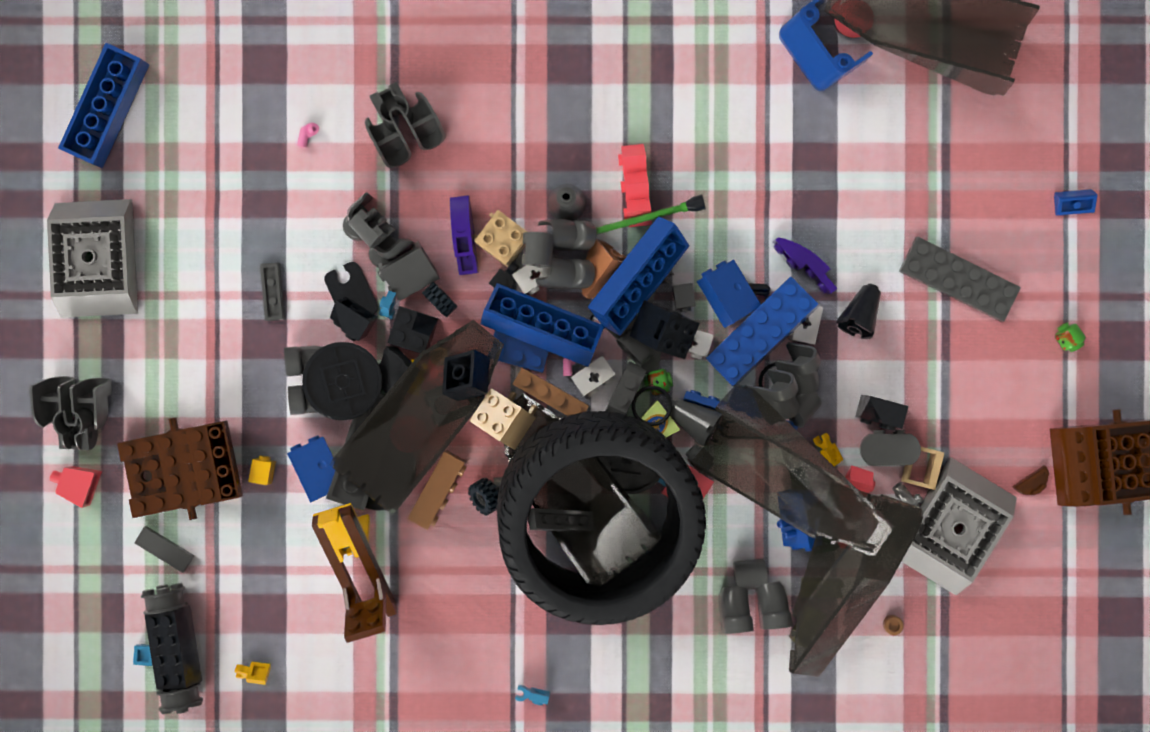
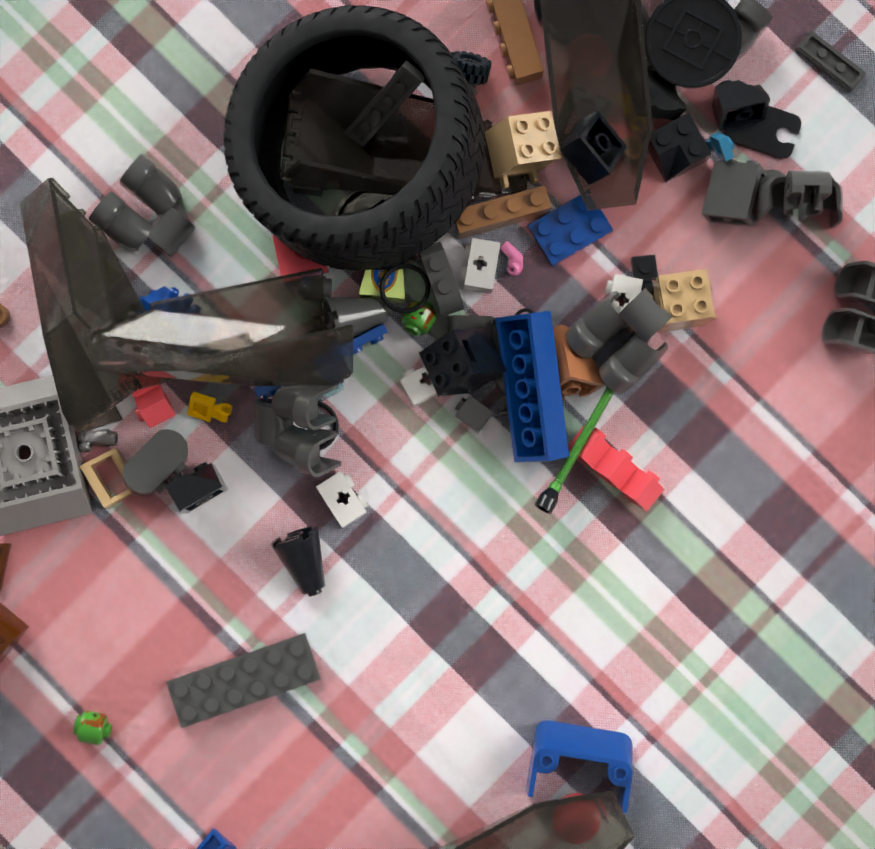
camera: 135 degrees right, 5 degrees down
(439, 299) = (682, 195): black bush -> none
(463, 235) = (722, 272): dark purple slope -> none
(542, 324) = (572, 262): blue brick -> none
(567, 209) = (659, 394): dark grey cone -> none
(730, 292) = (437, 456): blue piece -> none
(762, 331) = (373, 450): blue brick -> none
(801, 257) = (406, 552): dark purple slope -> none

